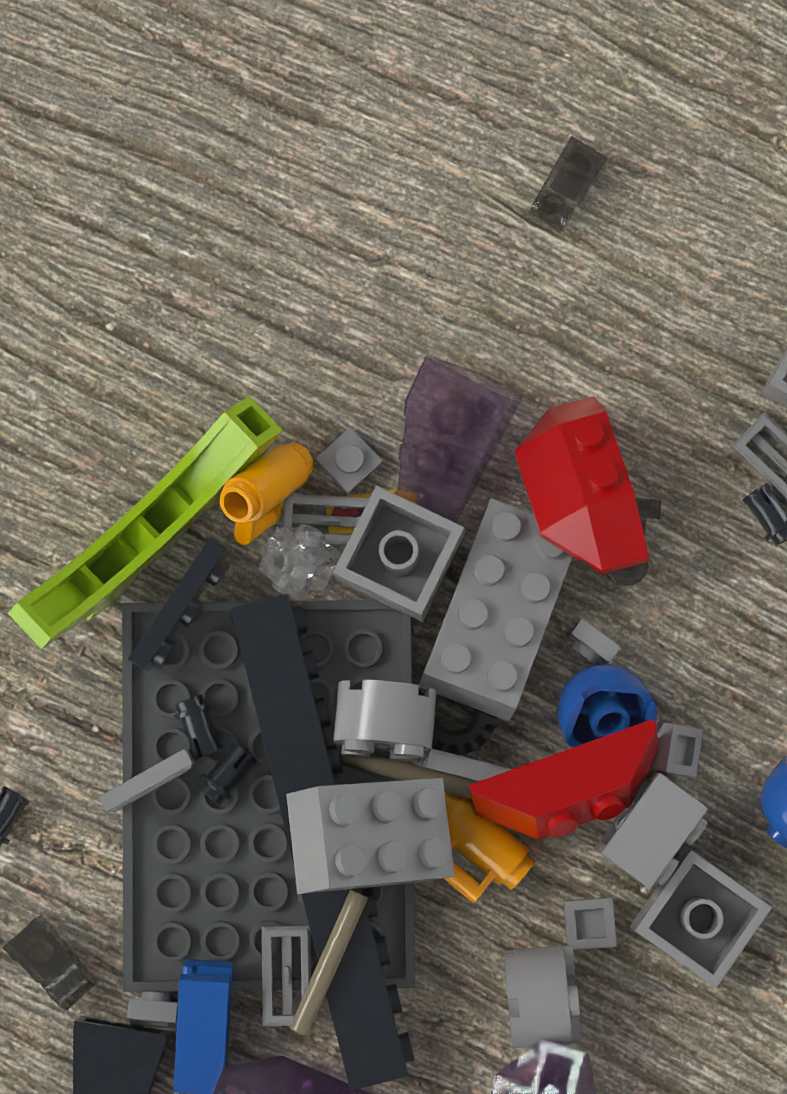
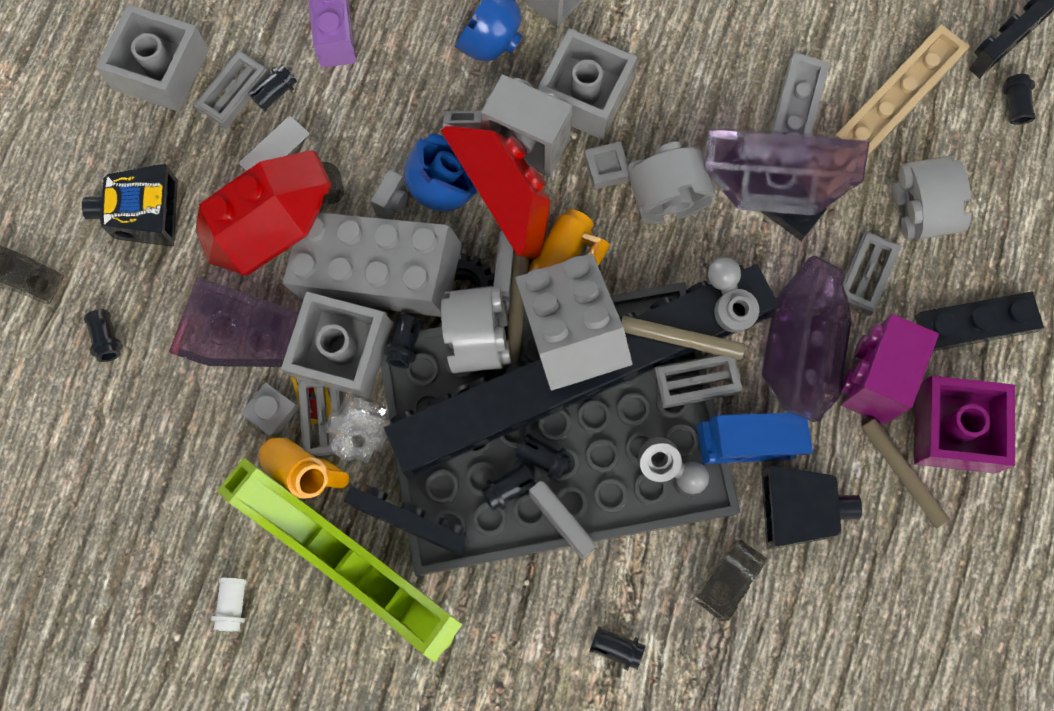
camera: 100 degrees left, 10 degrees down
(131, 390) = (229, 605): none -> white pin
(153, 1010) = (749, 484): light grey plate -> none
(173, 941) = (690, 476): none -> light grey plate
(393, 1030) = (725, 275): none -> light grey plate
(395, 632) = (403, 343): none -> black pin
(475, 274) = (102, 335): none -> black pin
(634, 329) = (137, 205): none -> torso
(692, 505) = (277, 143): none -> white sticker

